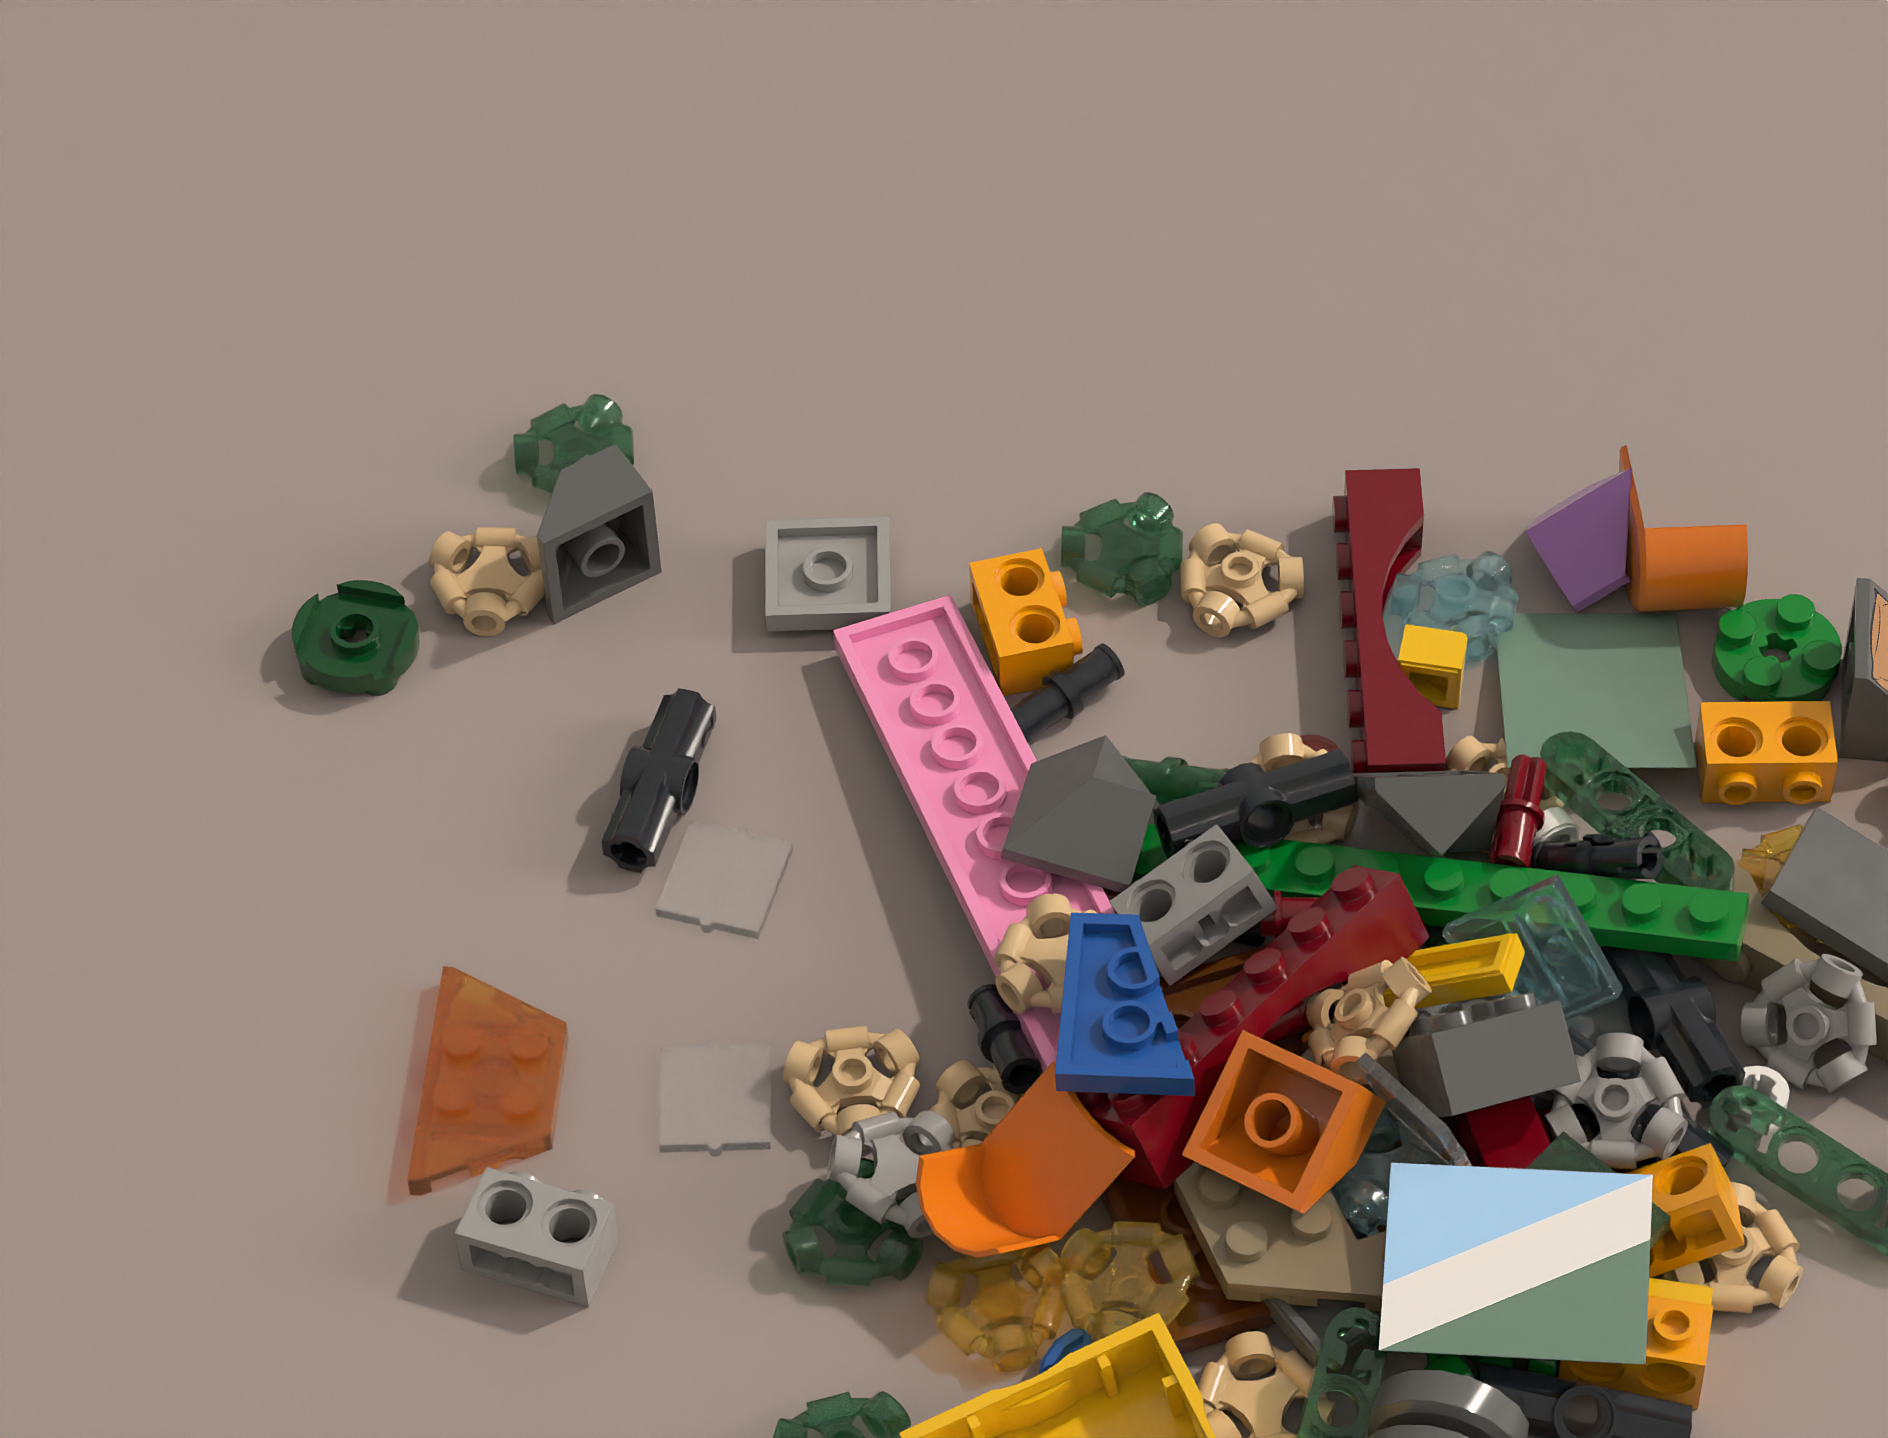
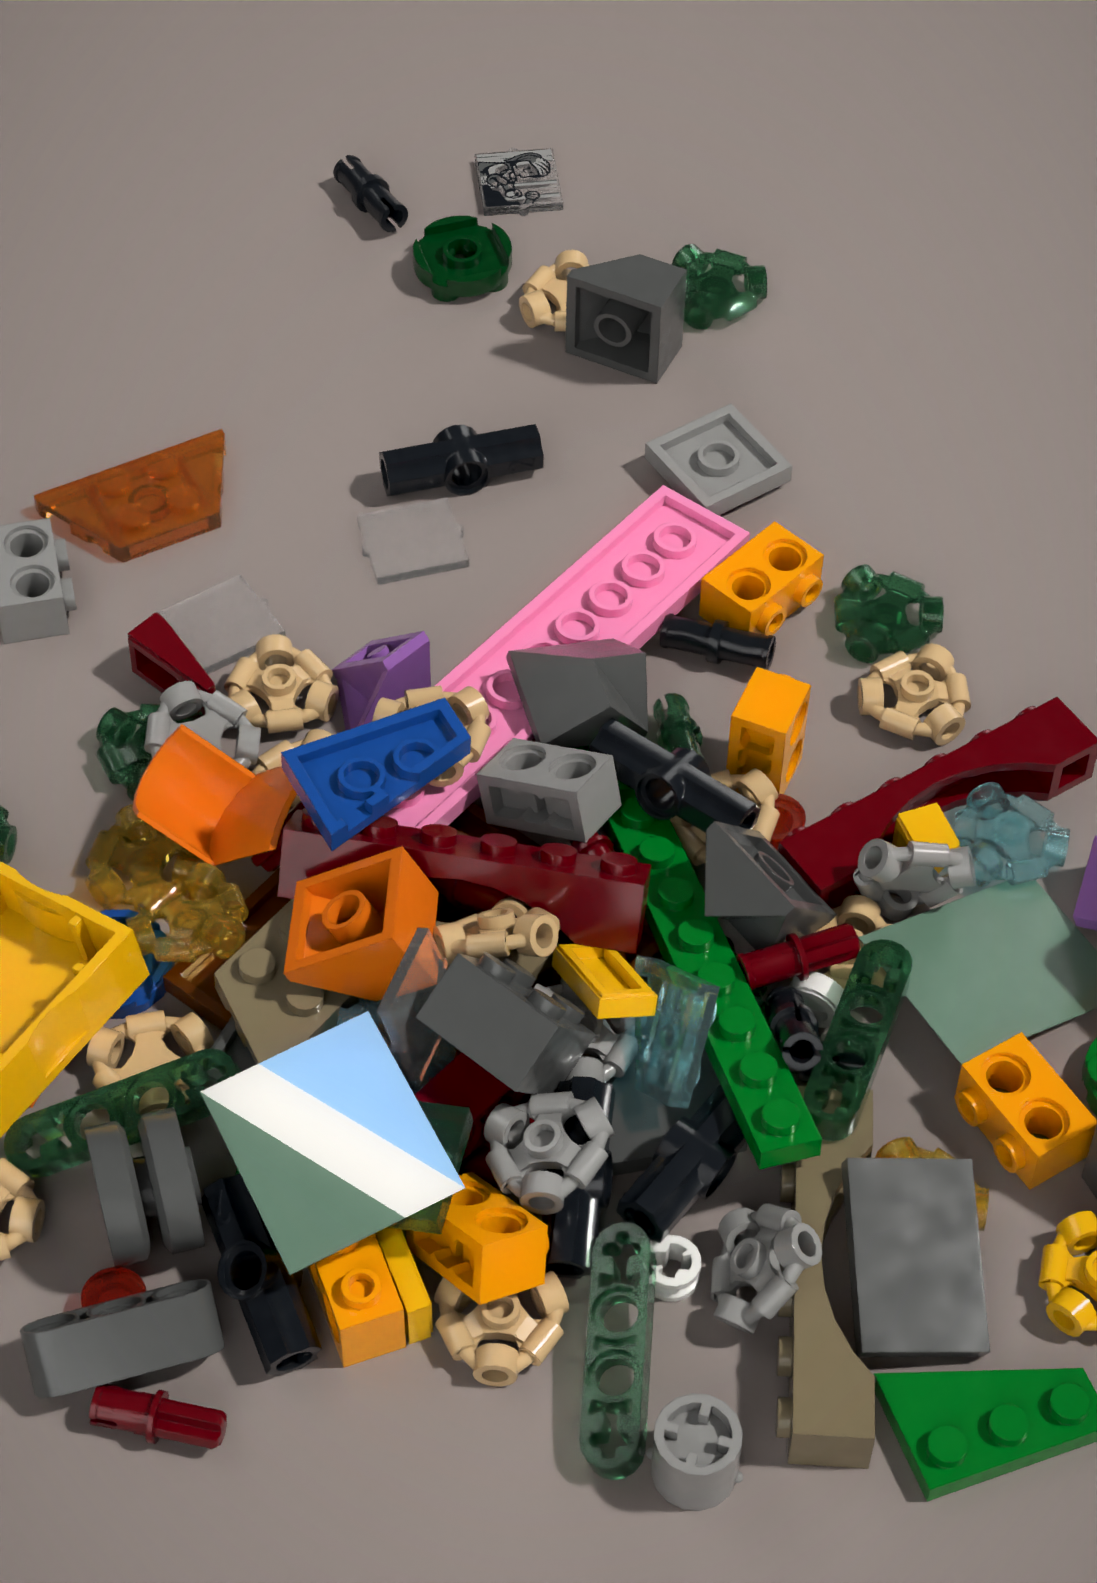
camera: 55 degrees right, 0 degrees up
(186, 669) = (370, 193): none -> black pin
(267, 537) = (518, 182): none -> piece
(763, 1158) = (163, 658): none -> dark red slope
(908, 987) = (381, 670): none -> medium lavender slope
(1234, 700) = (769, 727): none -> light orange brick
(1479, 681) = (912, 874): none -> light grey piece

